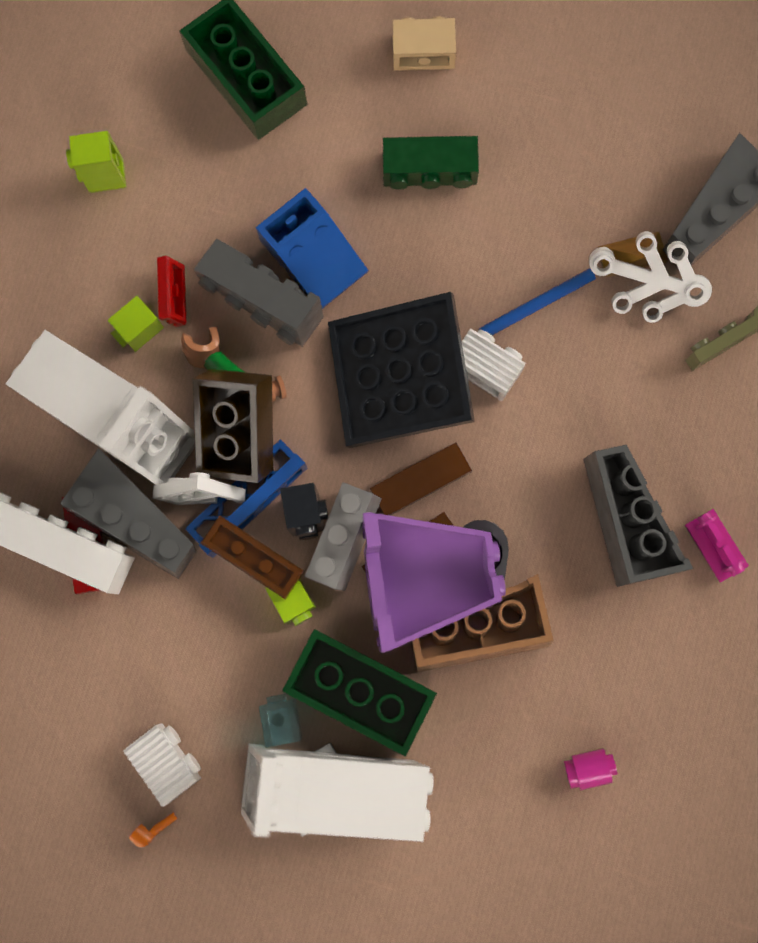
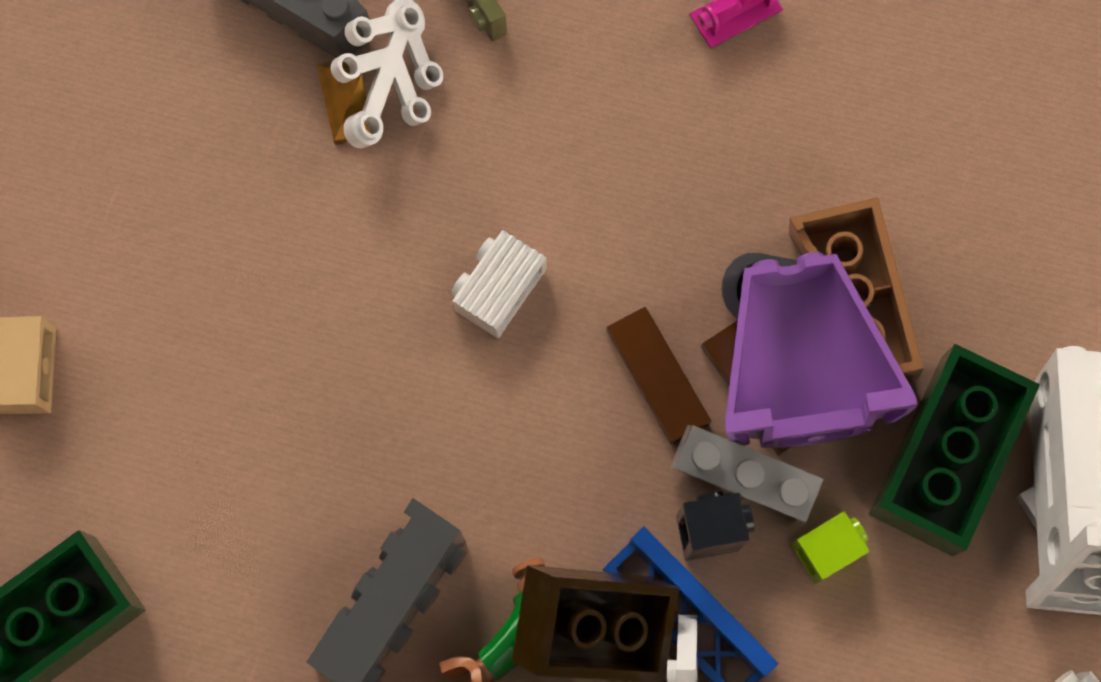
camera: 95 degrees left, 5 degrees down
(252, 557) = (782, 596): reddish brown tile -> none
(280, 721) = (998, 559): clear light blue brick -> none
(311, 248) = (325, 523): blue slope -> none
(400, 371) = (511, 396): black plate -> none
(430, 161) = (201, 358): dark green brick -> none
(539, 302) = (411, 219): blue bar -> none
(590, 769) = (1027, 166): dark pink brick -> none
(630, 519) = (711, 107): dark grey wedge -> none

